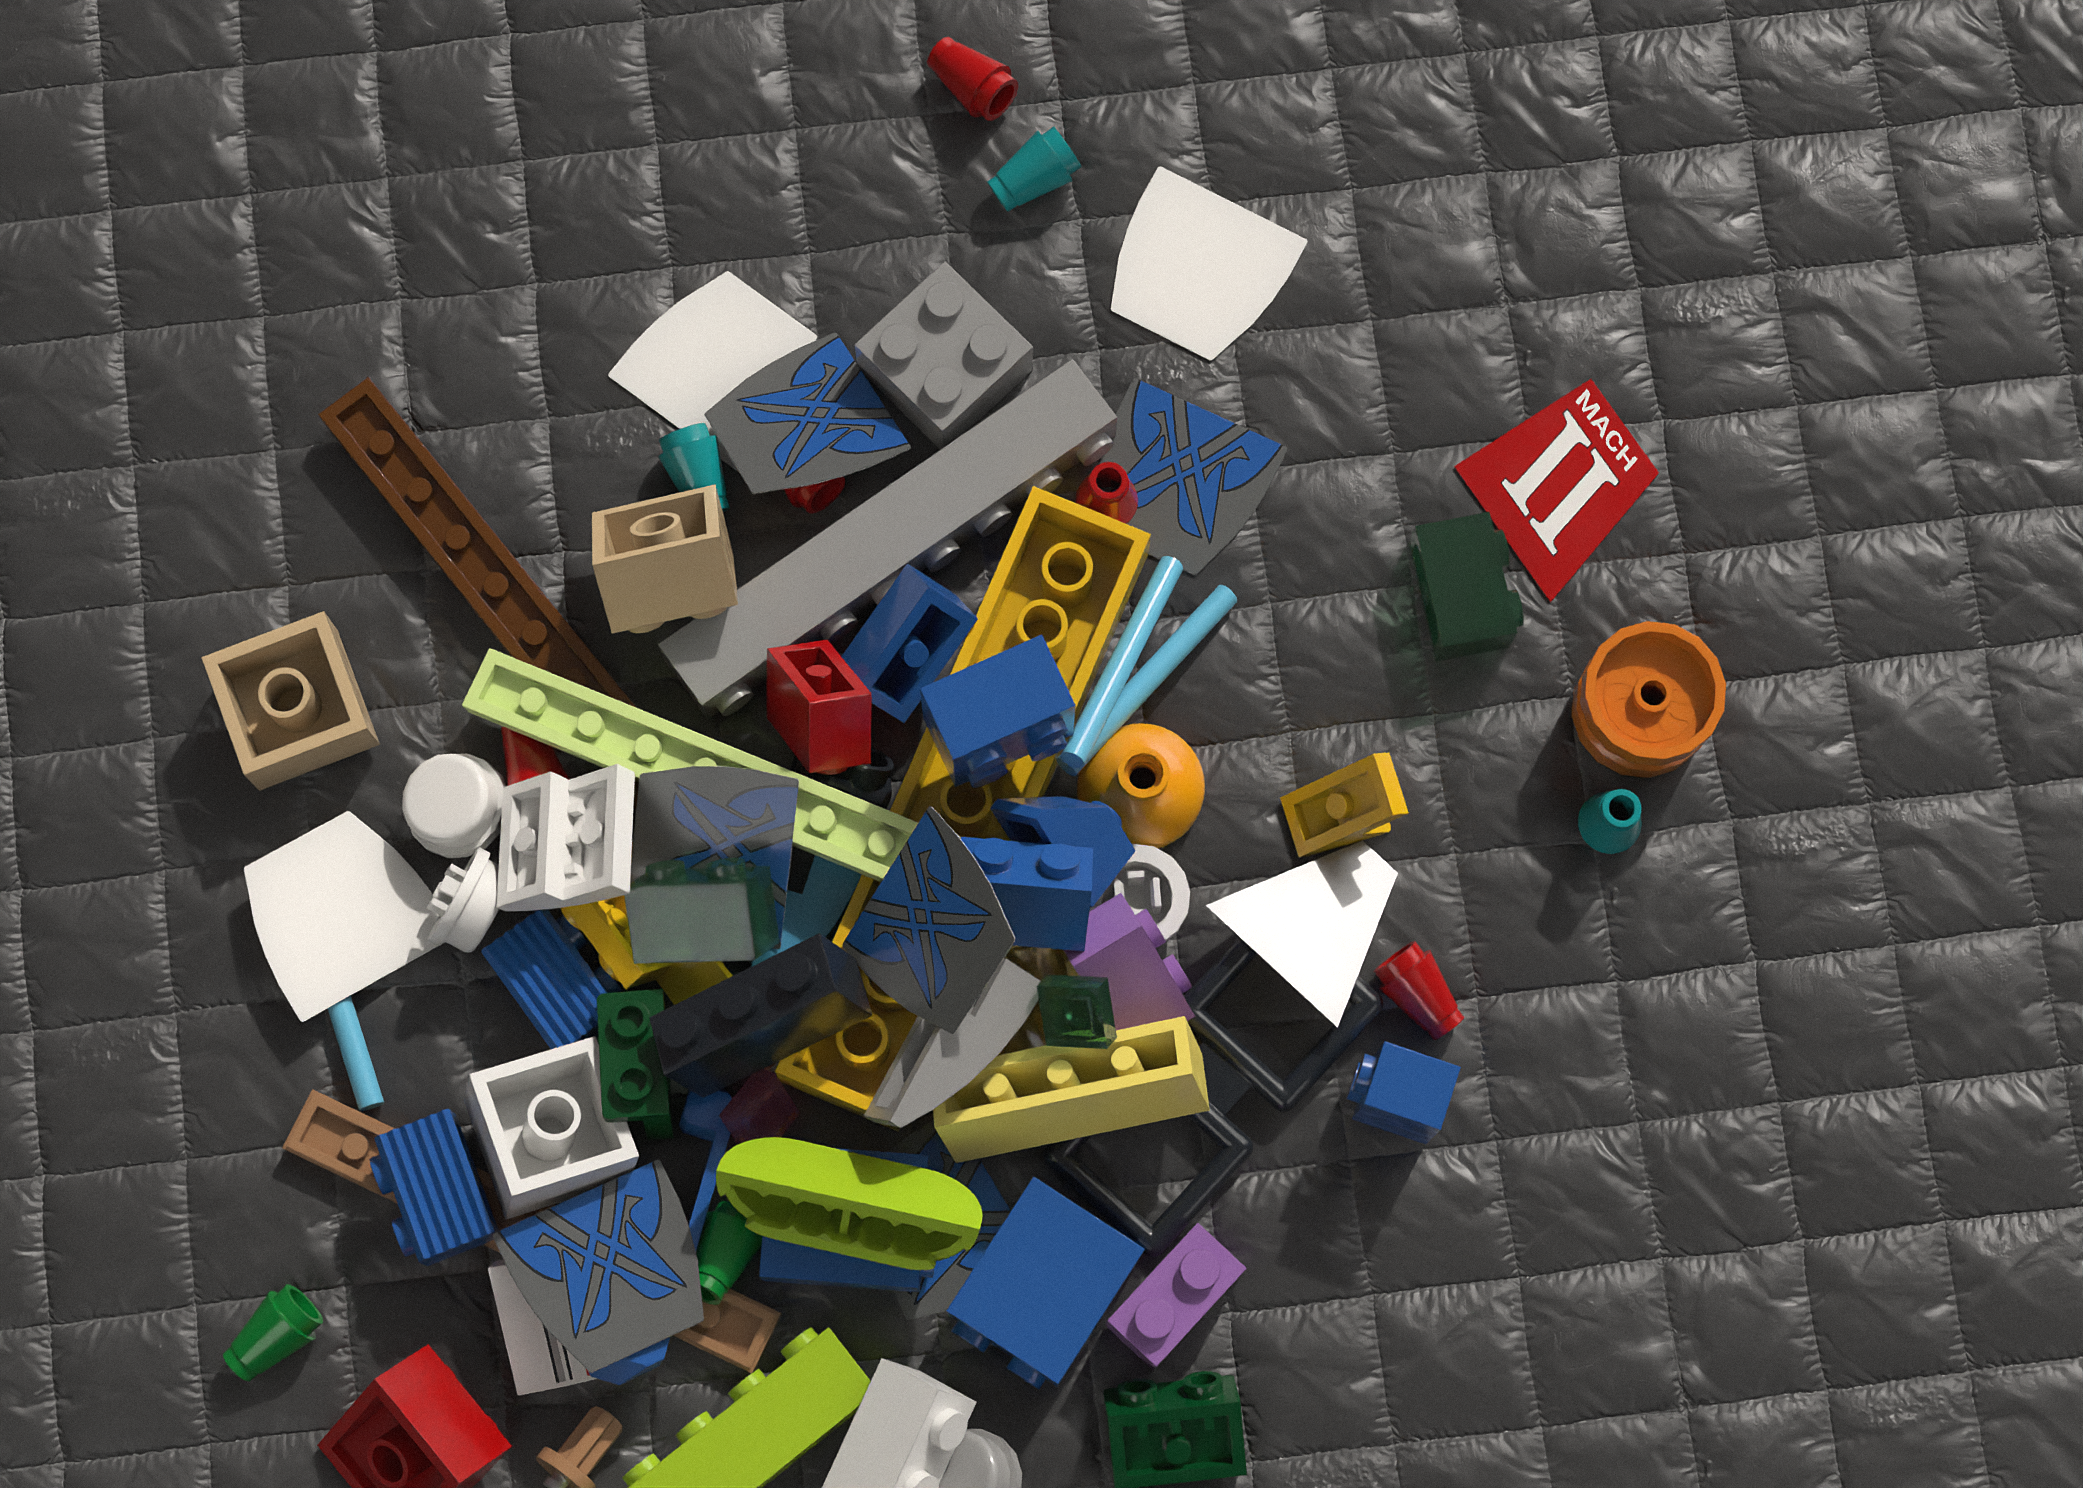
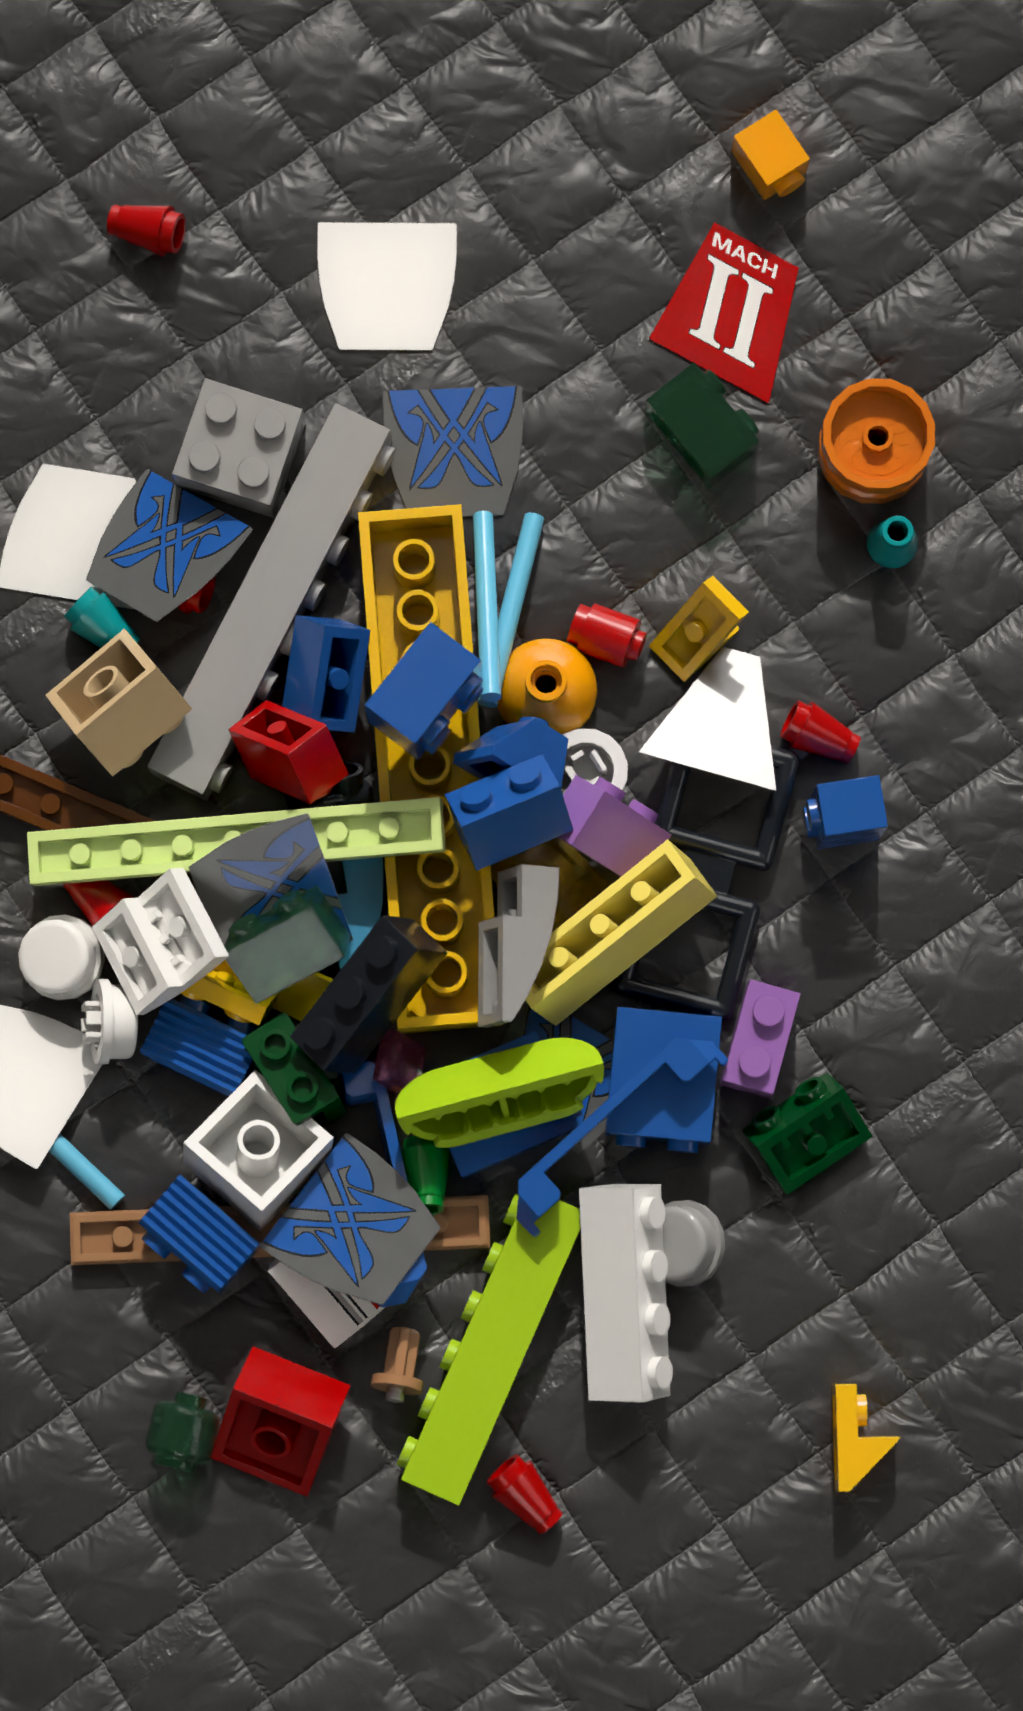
camera: 25 degrees left, 5 degrees up
(274, 1331) = (137, 1391): green cone -> none
(298, 1400) = (182, 1432): none -> clear green head
(831, 1333) = (682, 1058): none -> blue piece
(932, 927) = (459, 869): sticker -> none
(1035, 170) = (230, 273): teal cone -> none
(1076, 1011) = (590, 875): clear green plate -> none
(1117, 504) = (423, 496): red cone -> none
(1239, 760) = (606, 634): none -> red brick
(1689, 336) = (771, 156): none -> light orange brick

